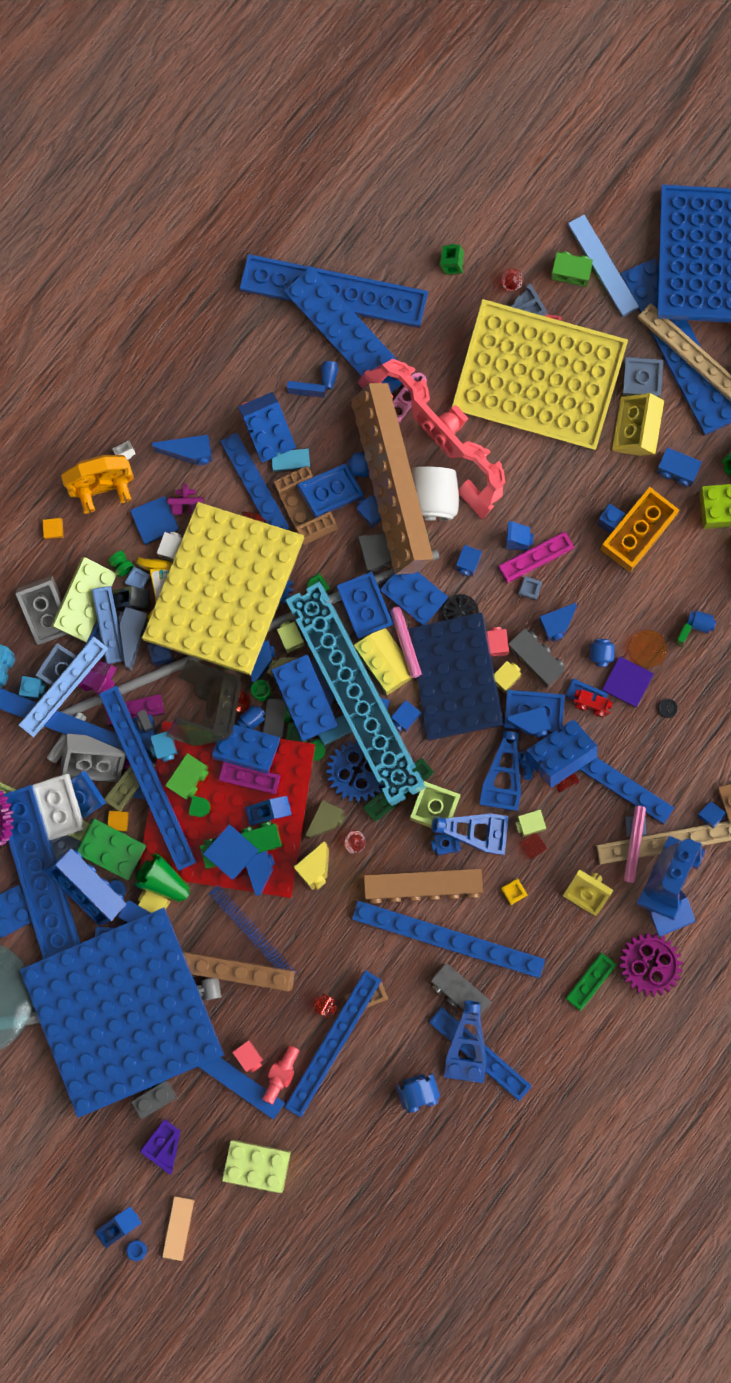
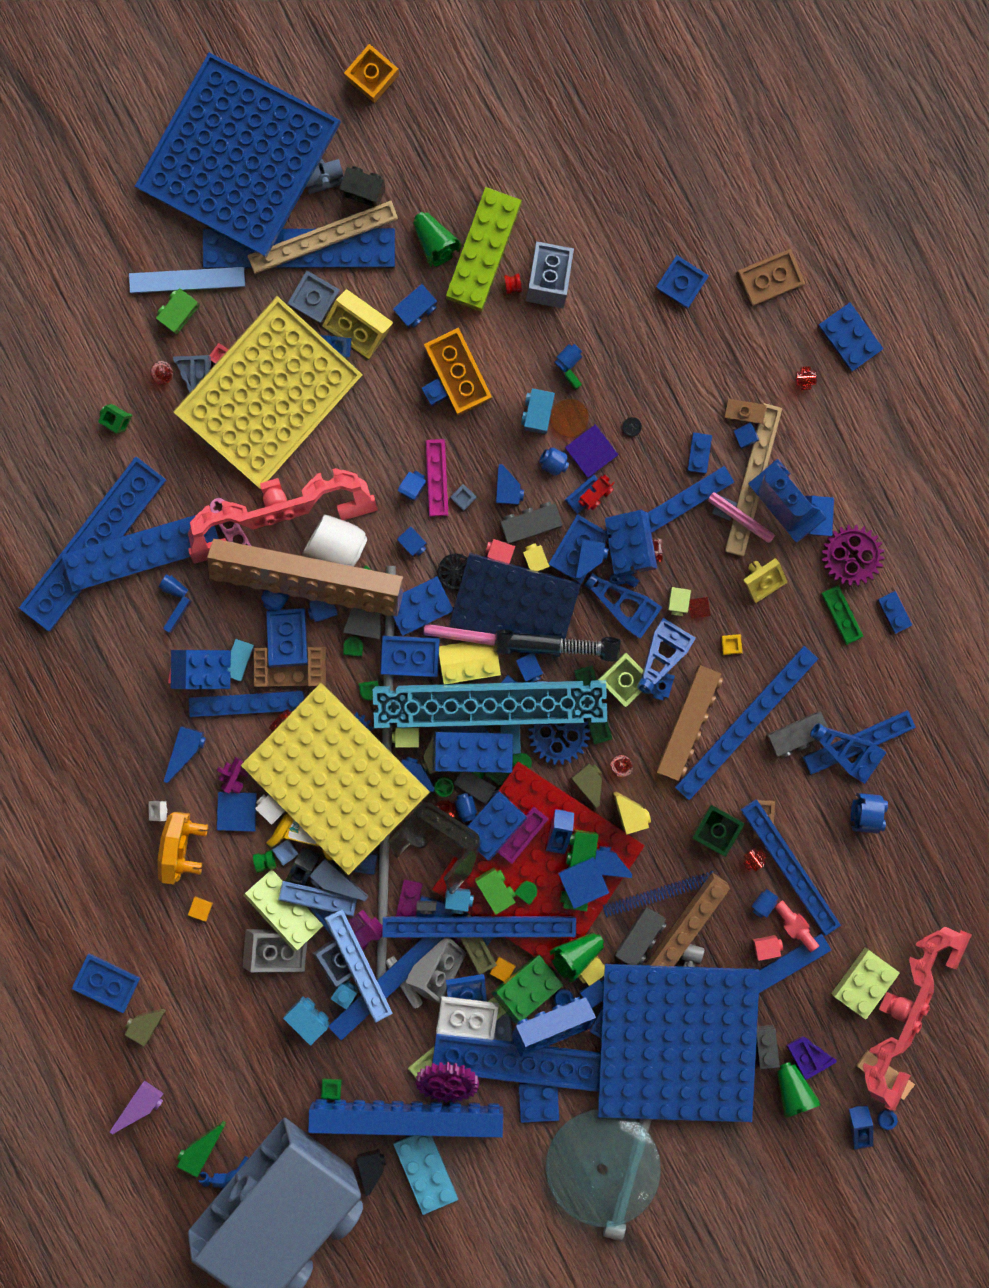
camera: 80 degrees left, 10 degrees up
(124, 1146) = (795, 1091): none -> green cone
(205, 933) = (641, 936): none -> dark grey brick
(247, 1223) = (911, 1013): none -> coral piece
(288, 1035) = (765, 903): none -> blue brick
(336, 957) = (717, 830): none -> dark green slope
(350, 554) = (353, 646): none -> green tile
(420, 686) = (509, 642): none -> black piece
(612, 418) = (341, 344): none -> blue slope
(617, 1030) = (894, 612): none -> blue plate
(640, 615) = (539, 411): none -> dark azure brick
(674, 780) = (699, 453): none -> blue plate

